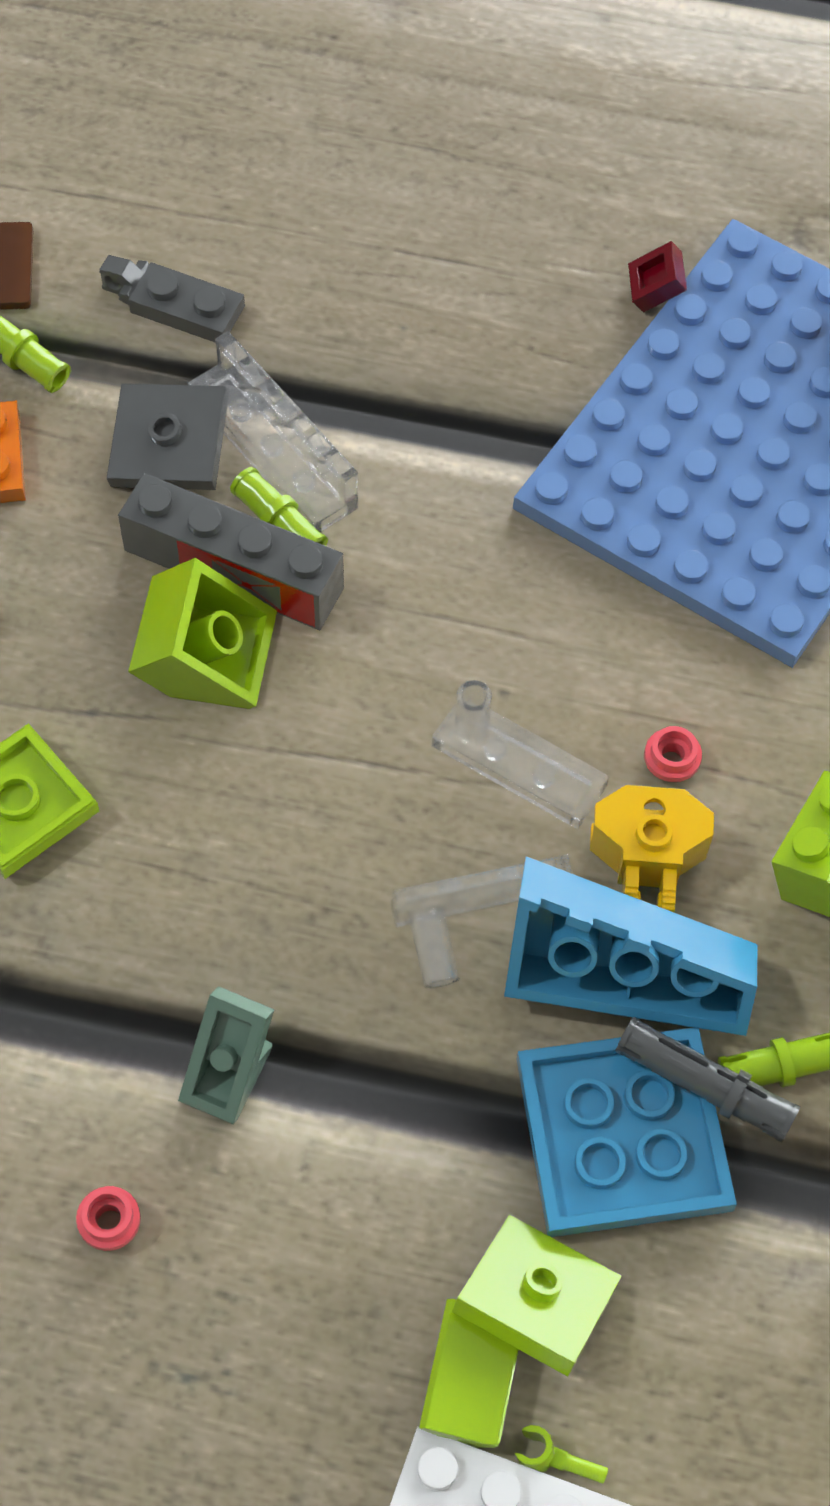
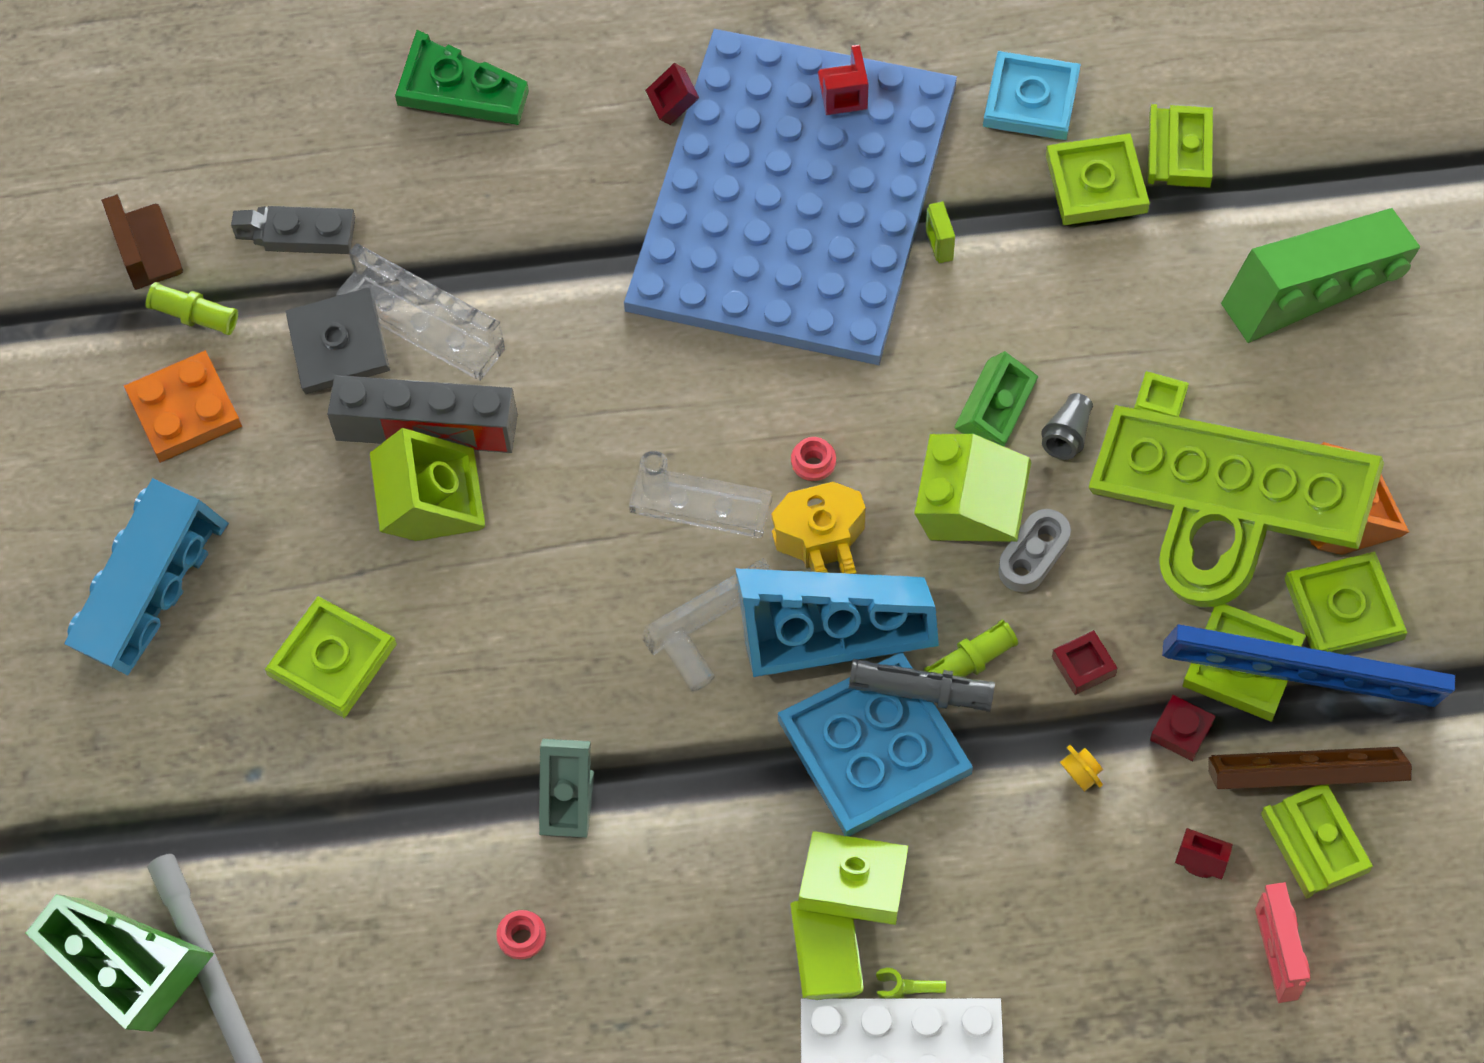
camera: 15 degrees left, 0 degrees up
(272, 506) = (440, 369): lime pin -> none
(412, 192) = (452, 84): none -> green wing

